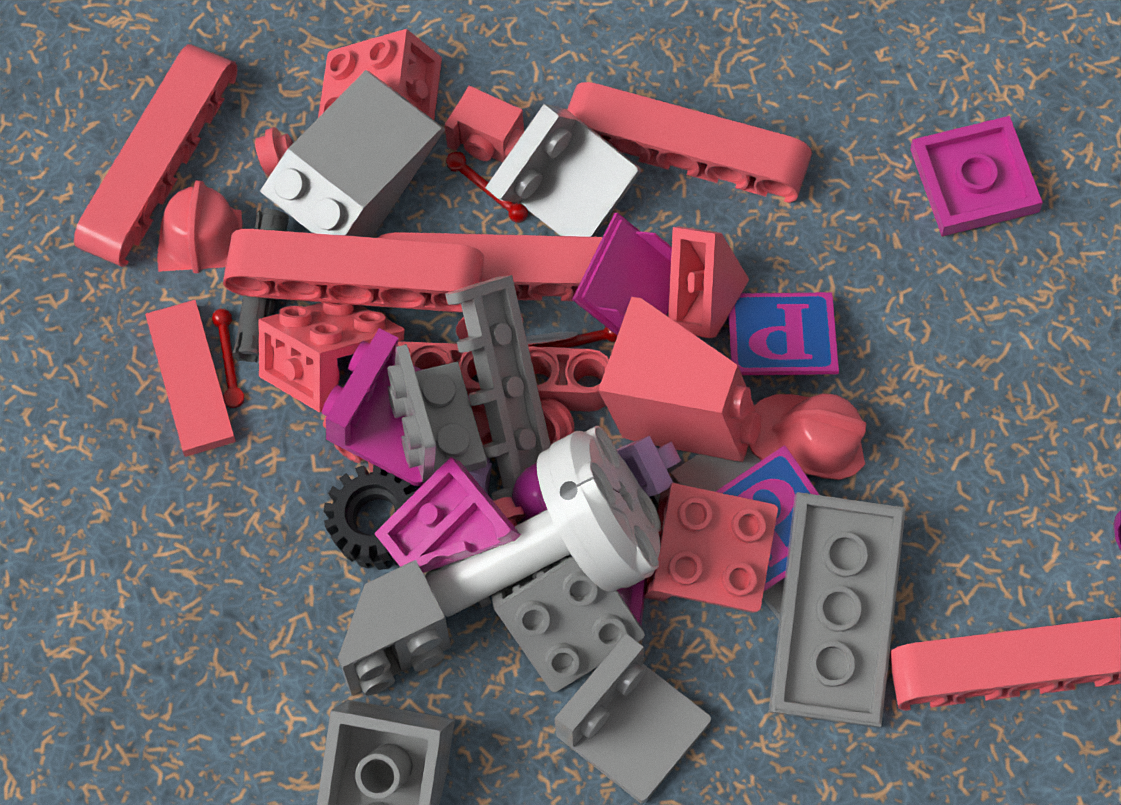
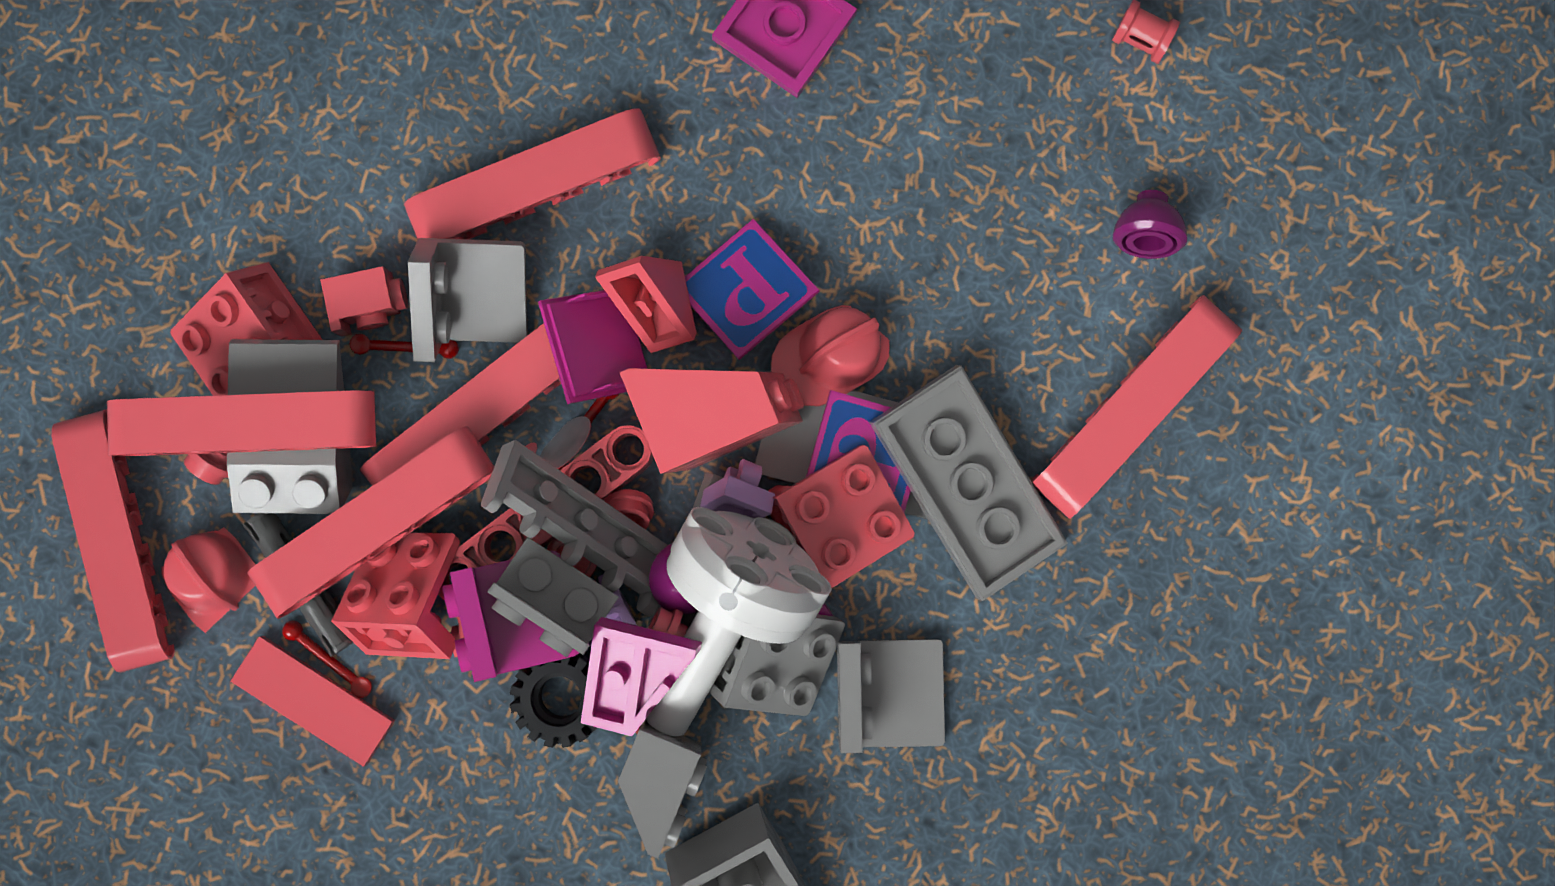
camera: 45 degrees left, 20 degrees up
(327, 123) = (241, 423): none -> coral beam

